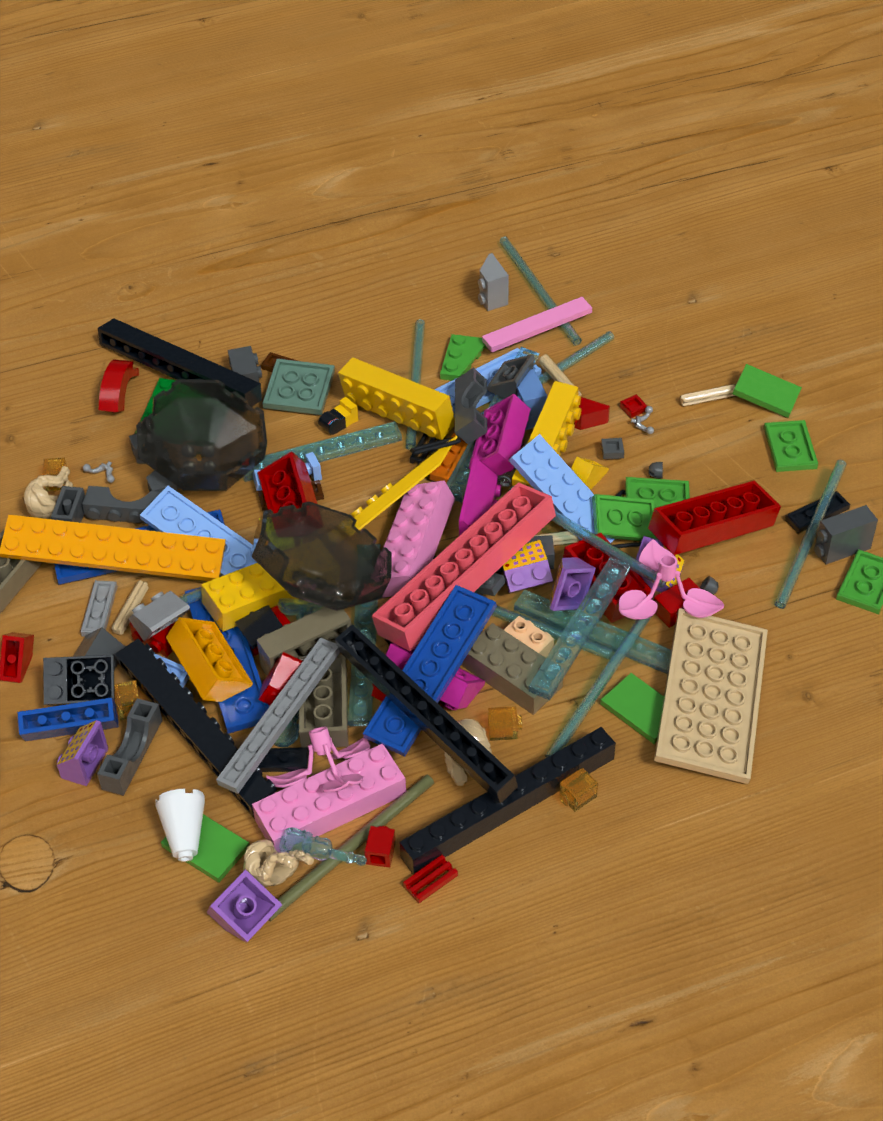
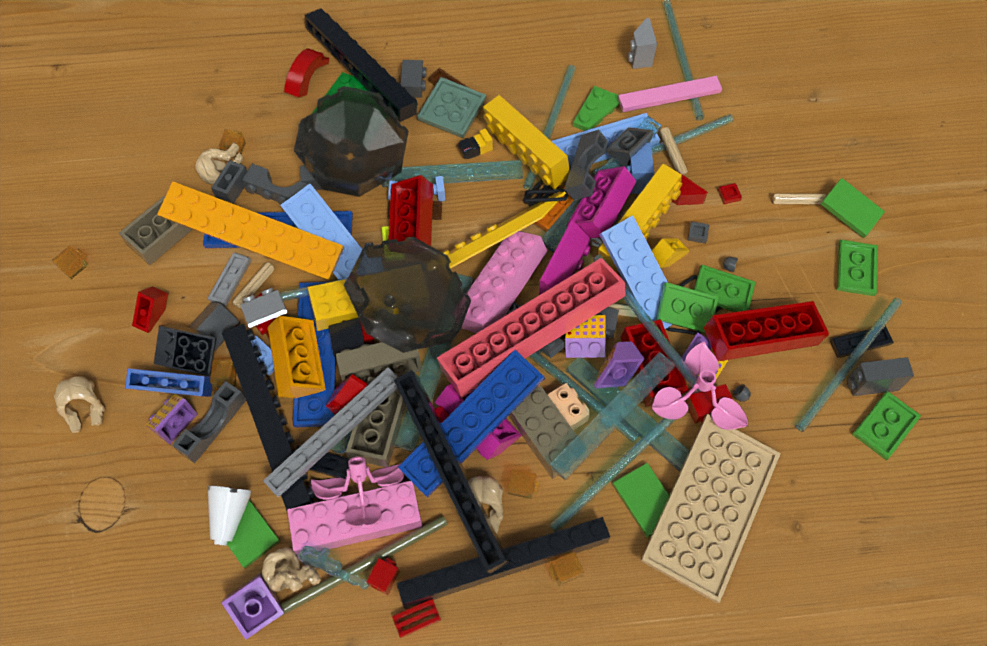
camera: 15 degrees right, 15 degrees up
(110, 478) = (259, 143): light grey piece -> none
(650, 430) = (736, 222): light grey piece -> none

